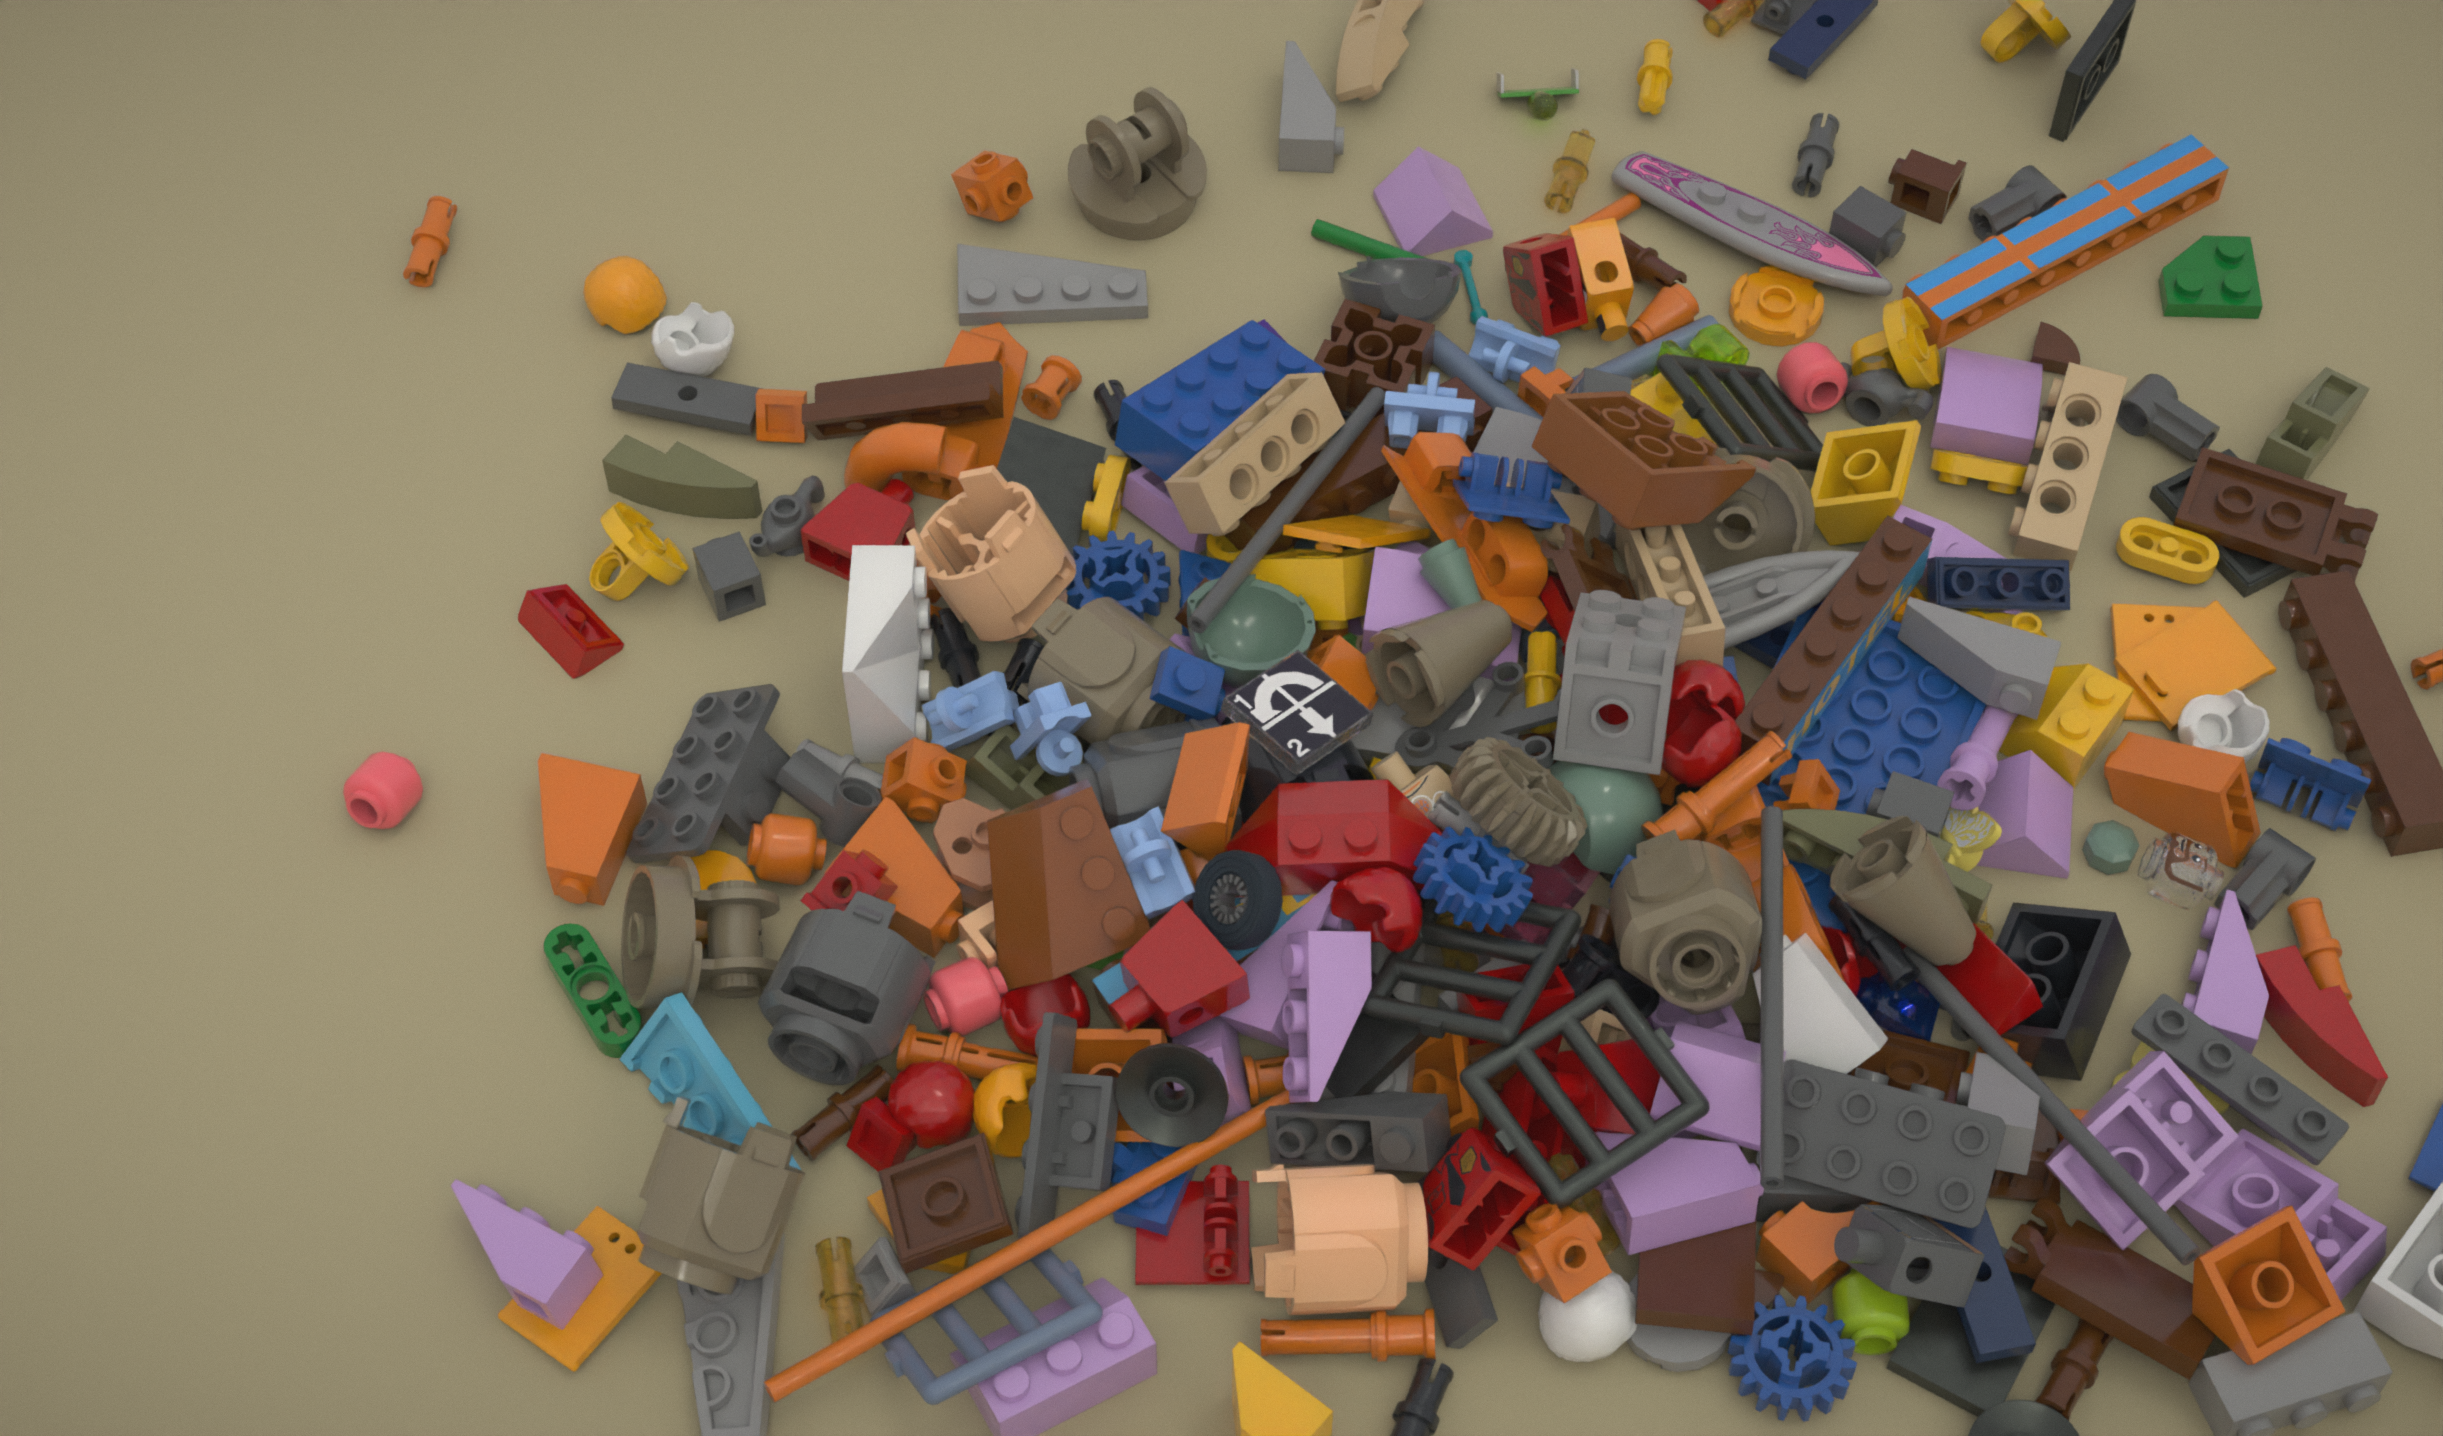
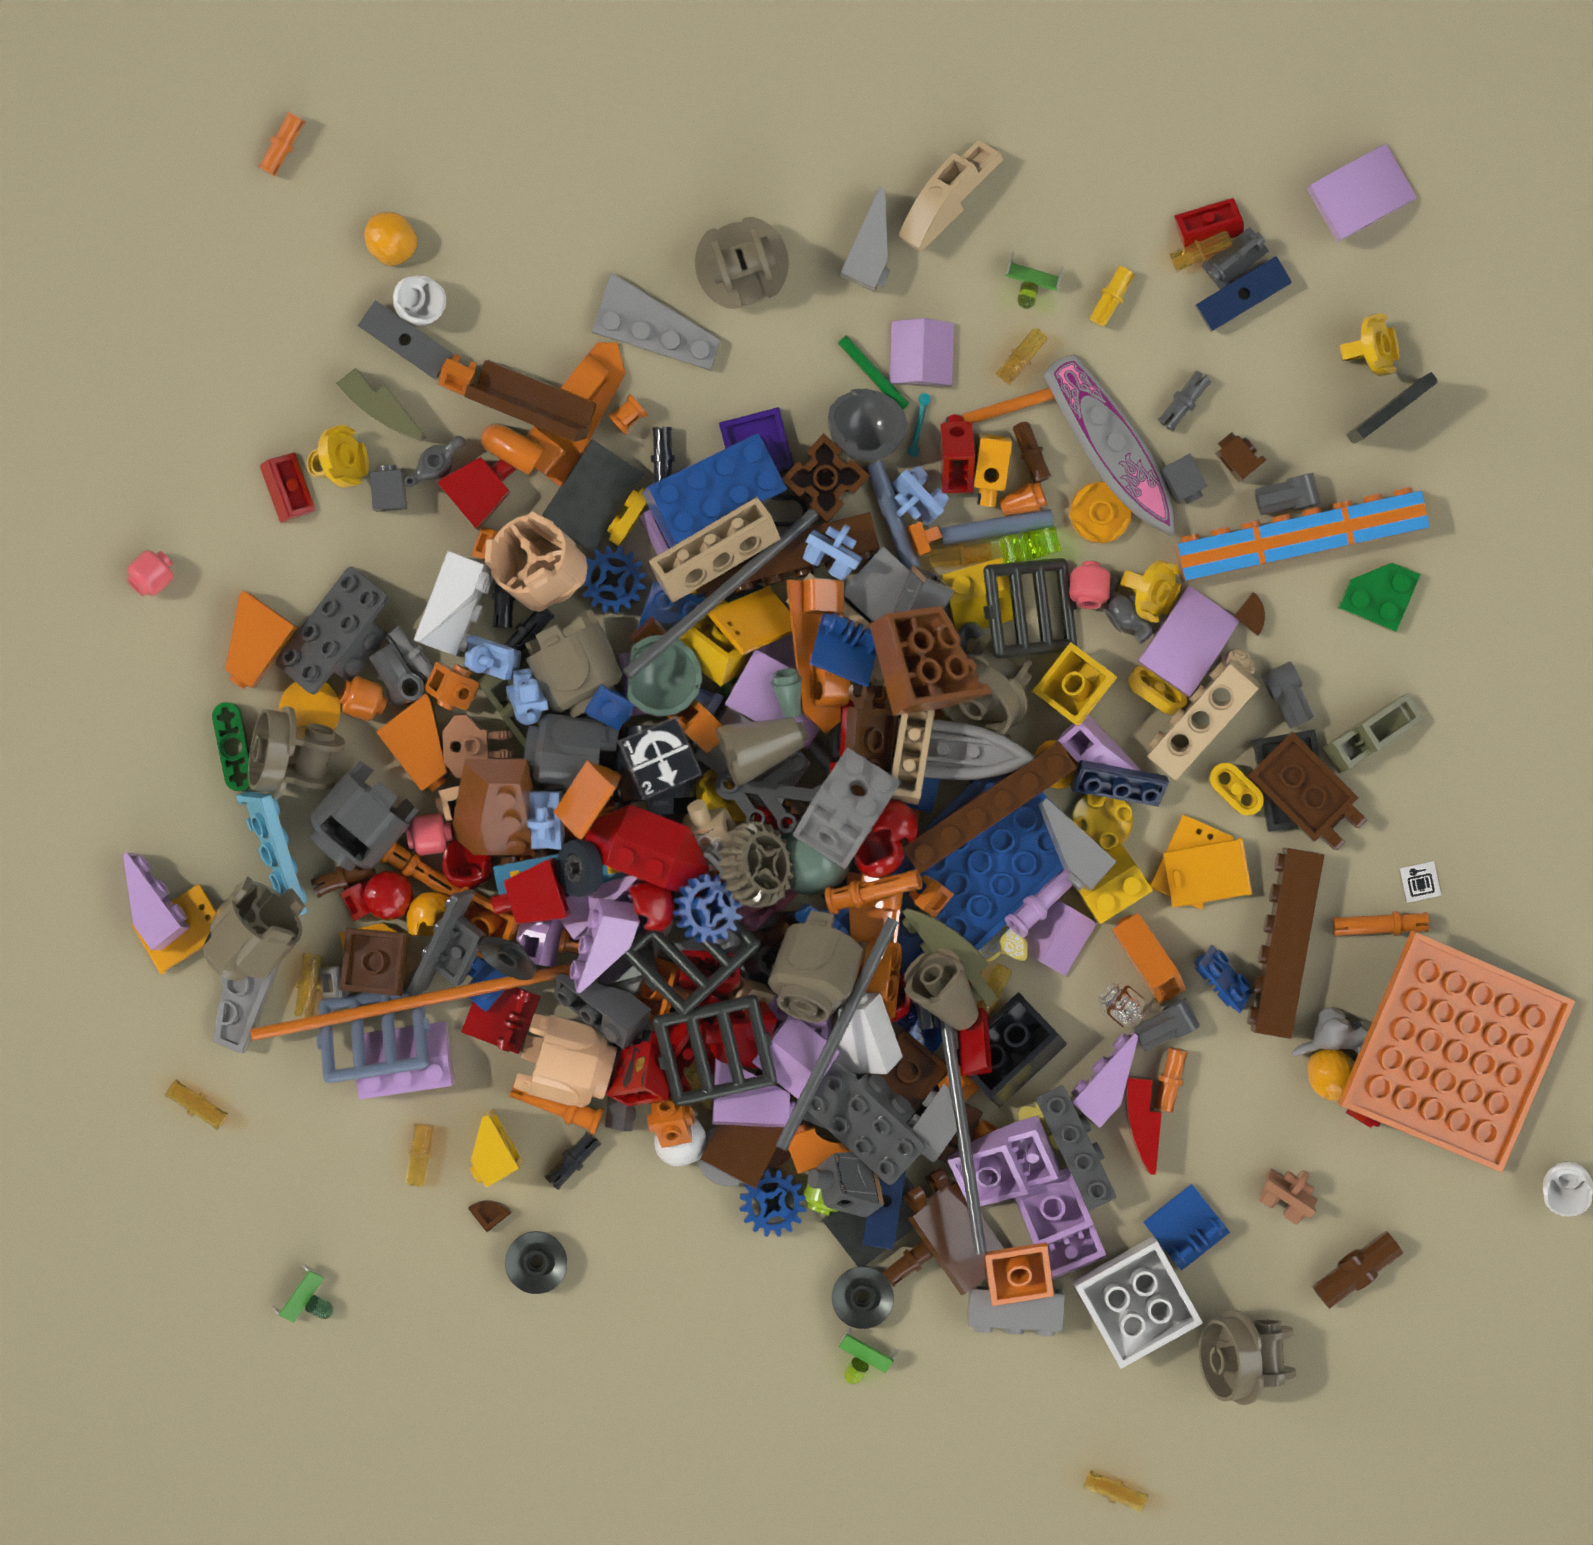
camera: 20 degrees right, 35 degrees up
(862, 870) = (382, 758): red brick -> none
(993, 186) = (646, 238): orange brick -> none
(1541, 674) = (819, 761): yellow axle -> none
(1914, 799) = (980, 930): dark grey brick -> none
(2110, 847) = (1096, 970): sand green tile -> none
(2224, 724) = (1192, 928): white hair -> none

